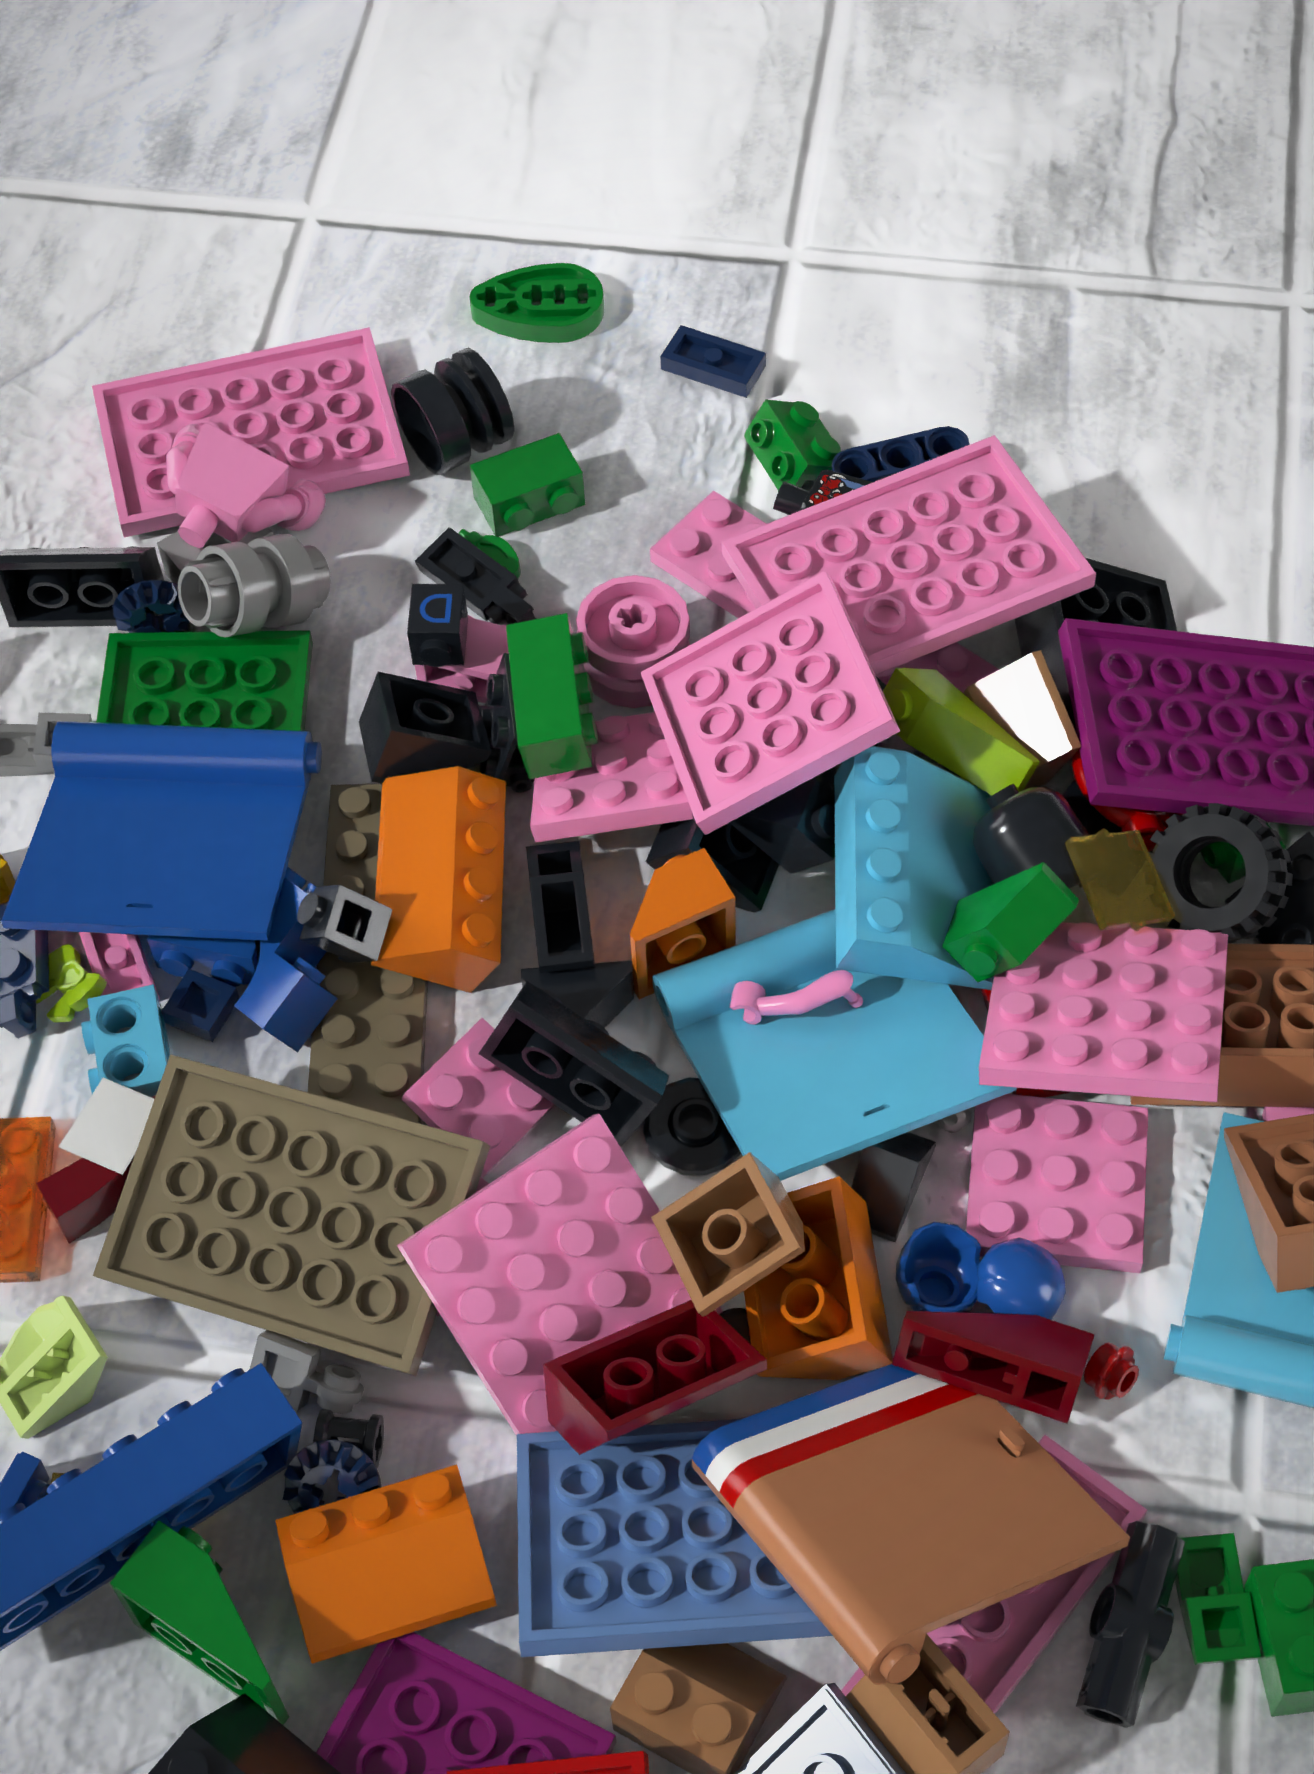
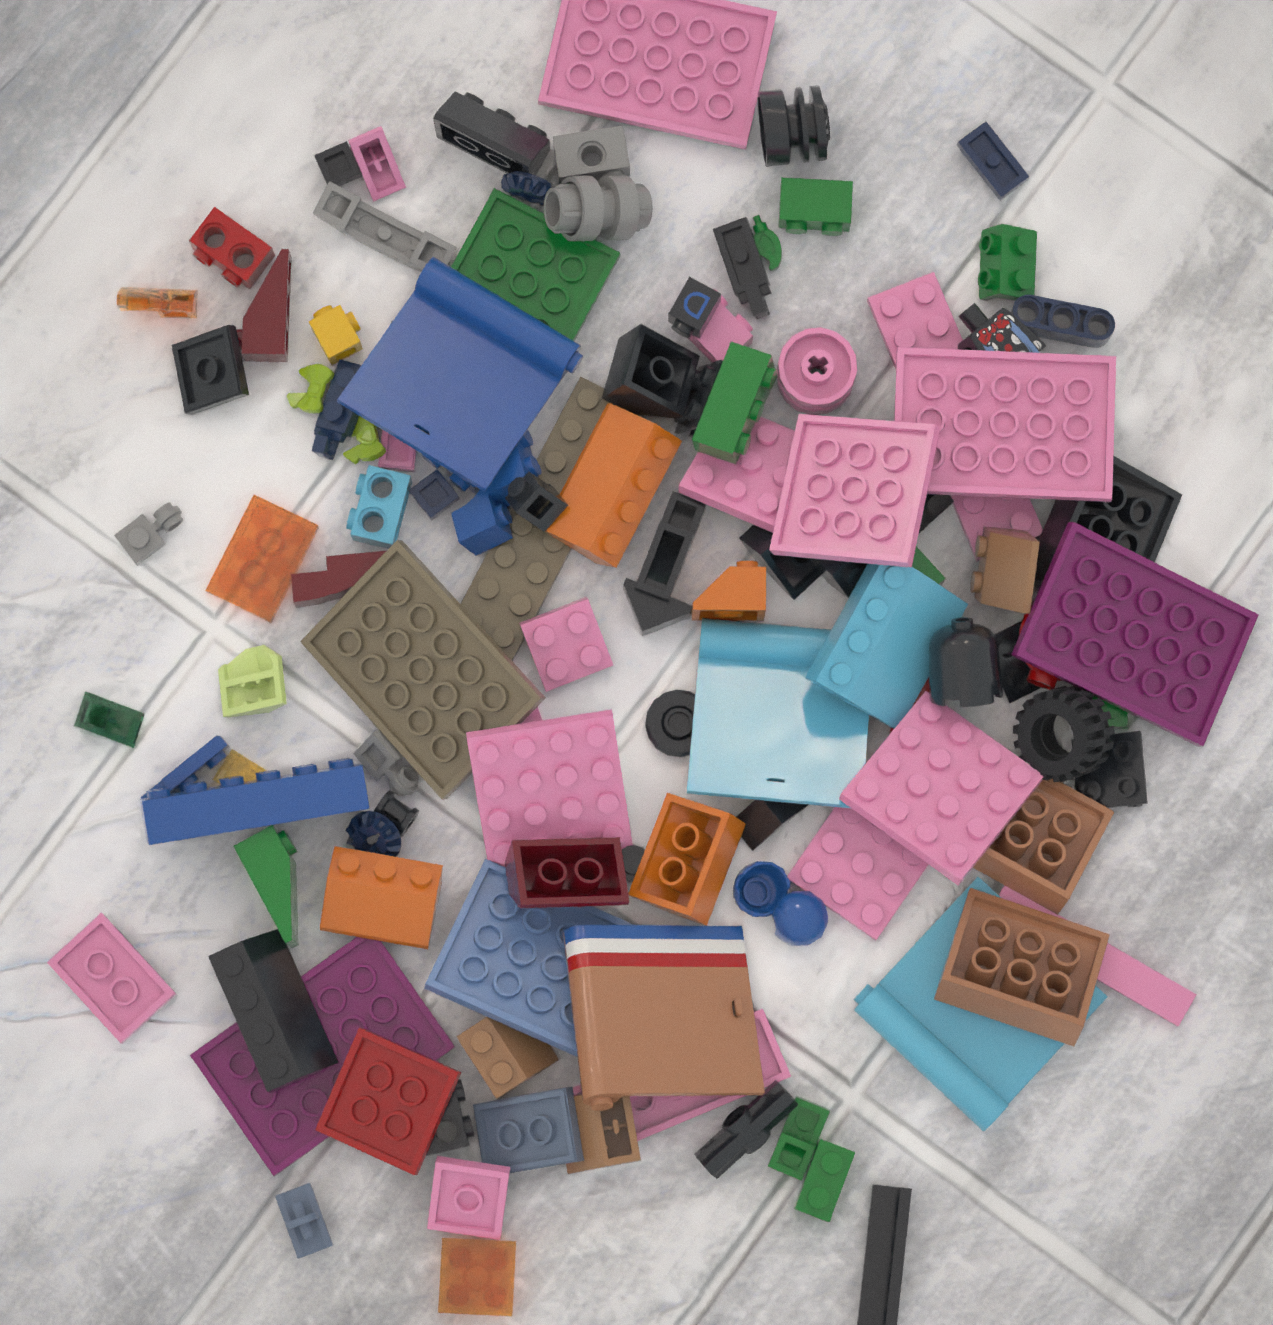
camera: 25 degrees right, 25 degrees up
(109, 1126) = (347, 559): white sticker -> none
(234, 488) = (613, 125): bright pink torso -> none
(544, 283) = (902, 63): green piece -> none
(574, 1062) = (627, 658): black slope -> none
(730, 1232) = (651, 820): medium nougat slope -> none
(831, 986) = (797, 687): bright pink piece -> none
(956, 731) = (963, 553): lime slope -> none
(999, 1356) = (768, 959): dark red slope -> none
(1007, 921) = (912, 708): green slope -> none
(1111, 1371) = (820, 991): red plate -> none
(1119, 880) = (996, 715): clear yellow piece -> none

